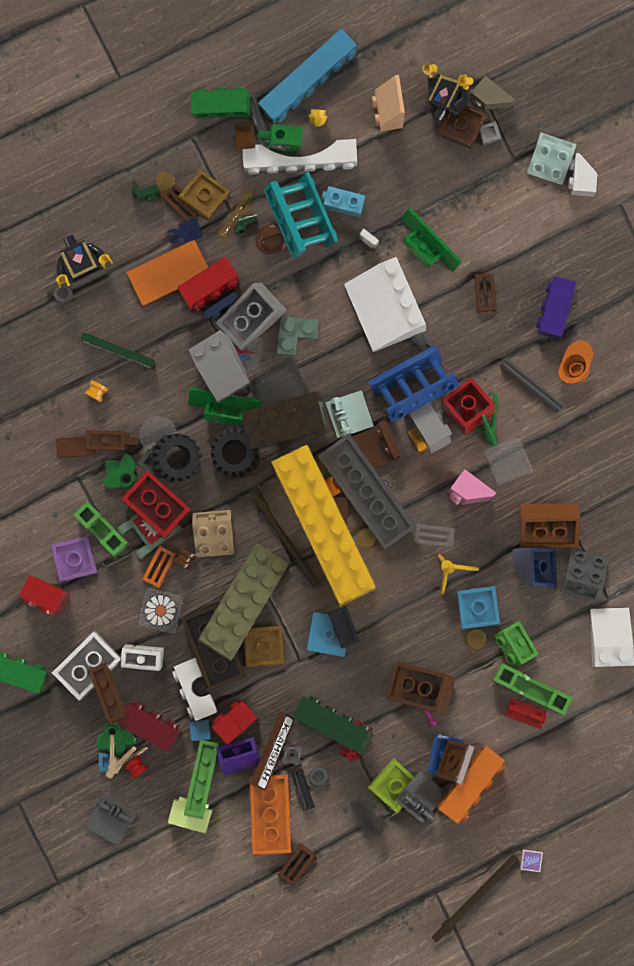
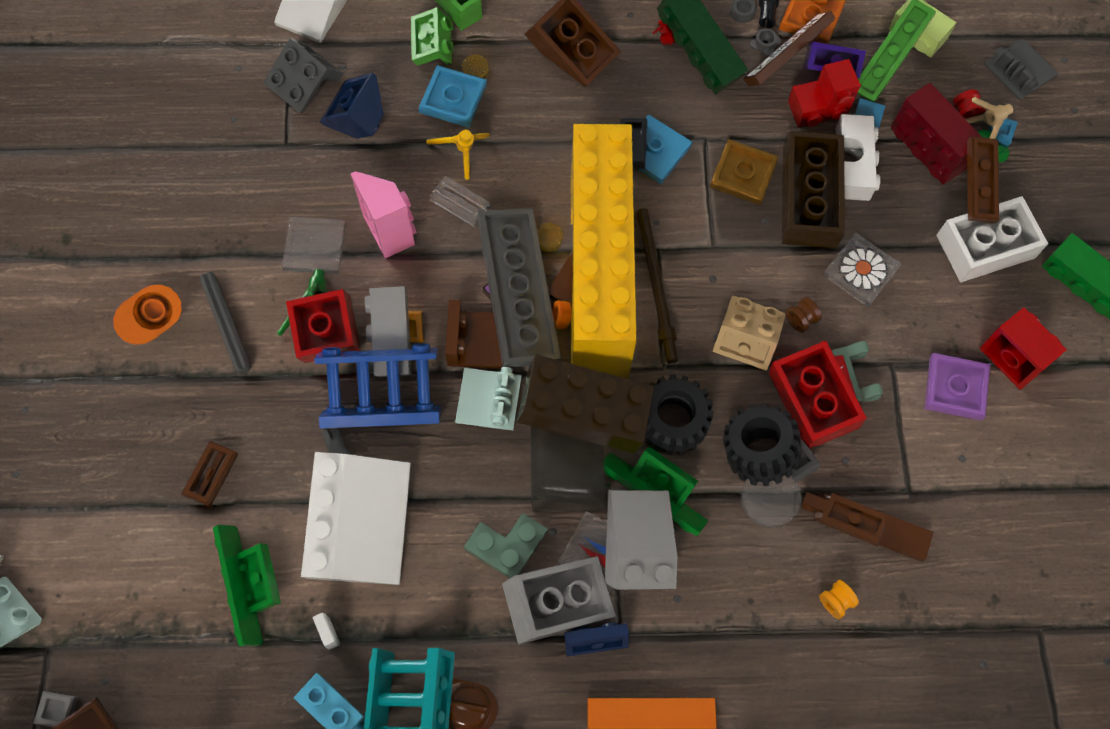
camera: 160 degrees left, 15 degrees down
(101, 529) = (914, 420): bright green arch -> none
(118, 350) = (782, 645): dark green tile -> none
(118, 471) = (848, 473): green plate -> none
(142, 657) = (913, 218): white brick -> none
(151, 565) = (817, 329): orange tile -> none
(209, 285) = (601, 672): red brick -> none
(243, 602) = (751, 219): olive plate -> none
(549, 525) = (308, 146): dark orange slope -> none
(555, 307) = (126, 403): dark purple brick -> none

